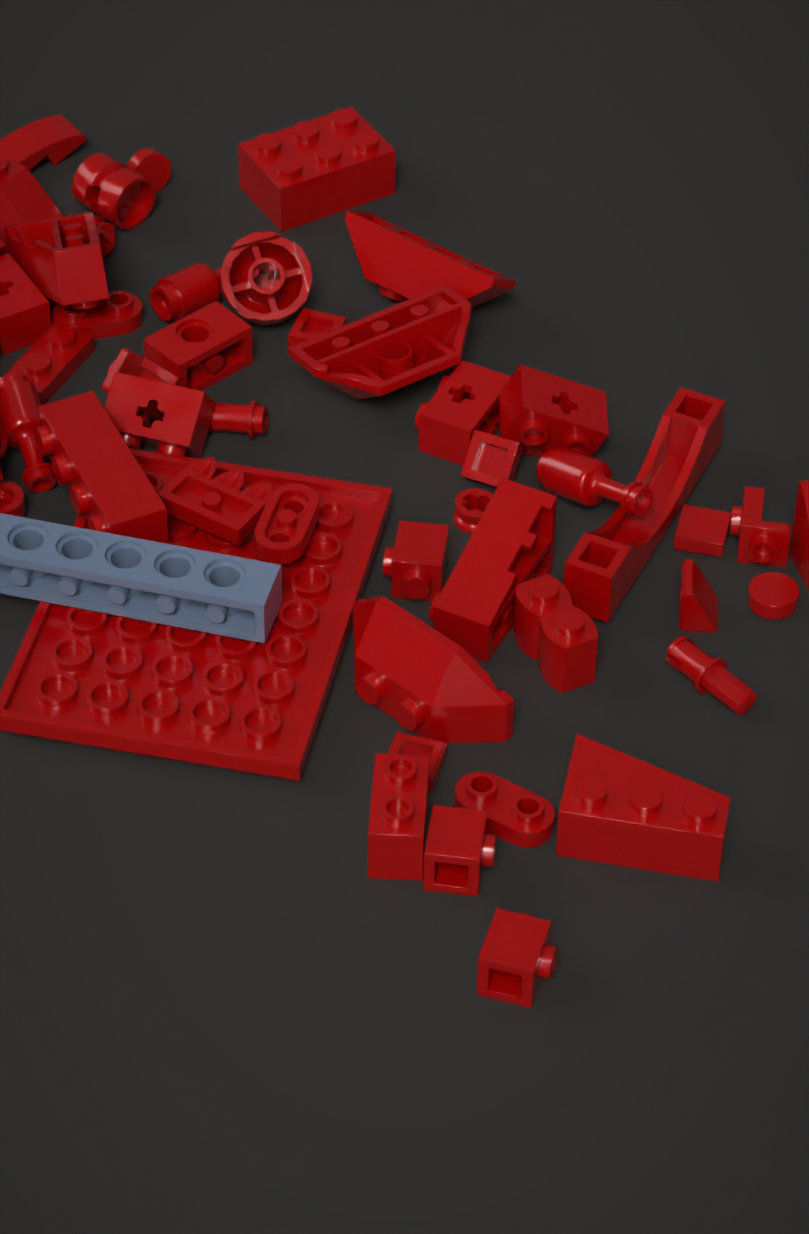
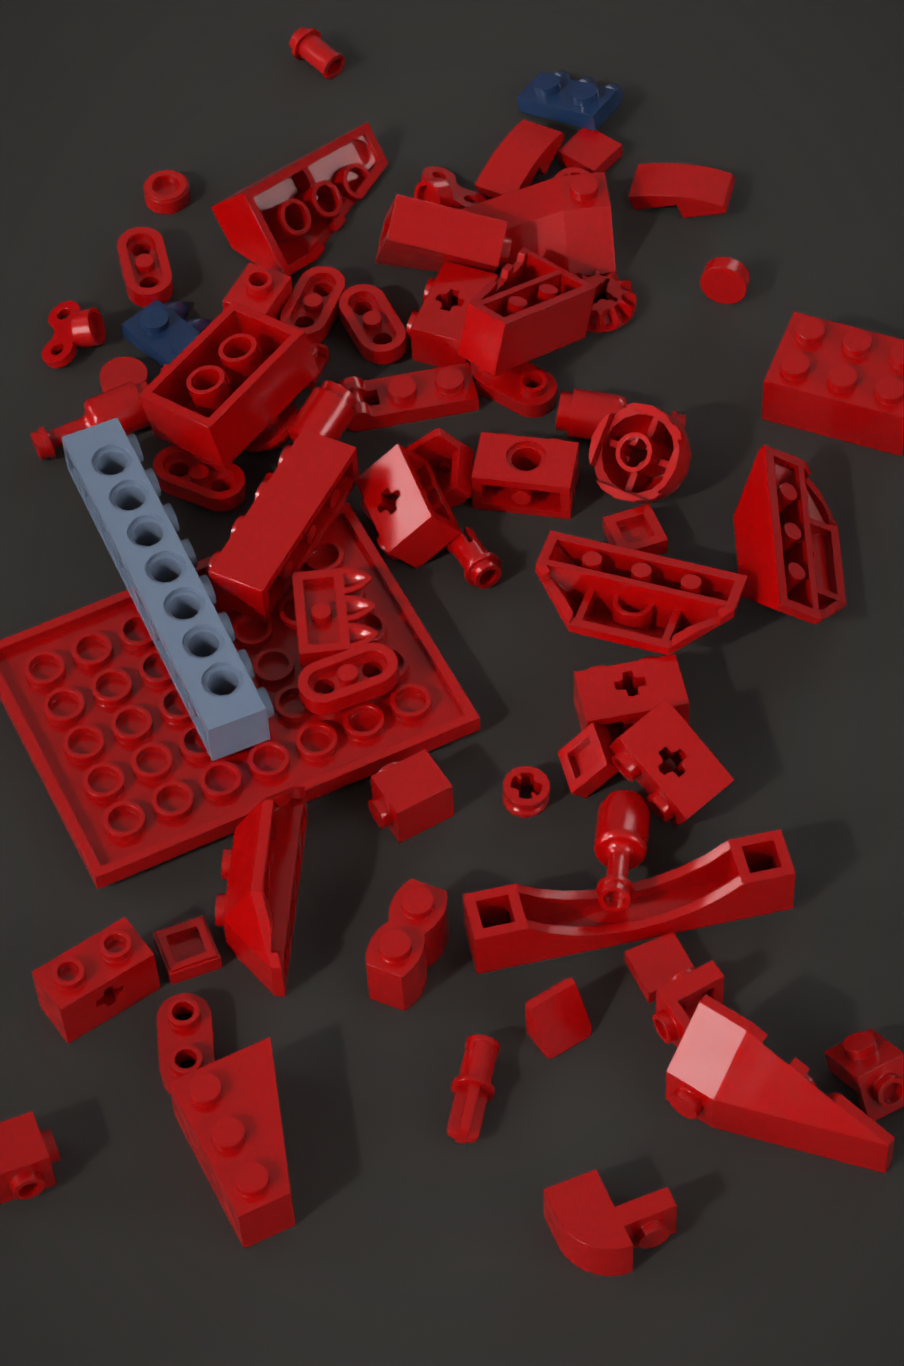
camera: 55 degrees right, 10 degrees up
(113, 191) = (665, 278): red wheel -> none
(457, 850) = (98, 1042): red brick -> none
(506, 548) = (450, 846): red wedge -> none
(773, 595) = (625, 1071): red tile -> none

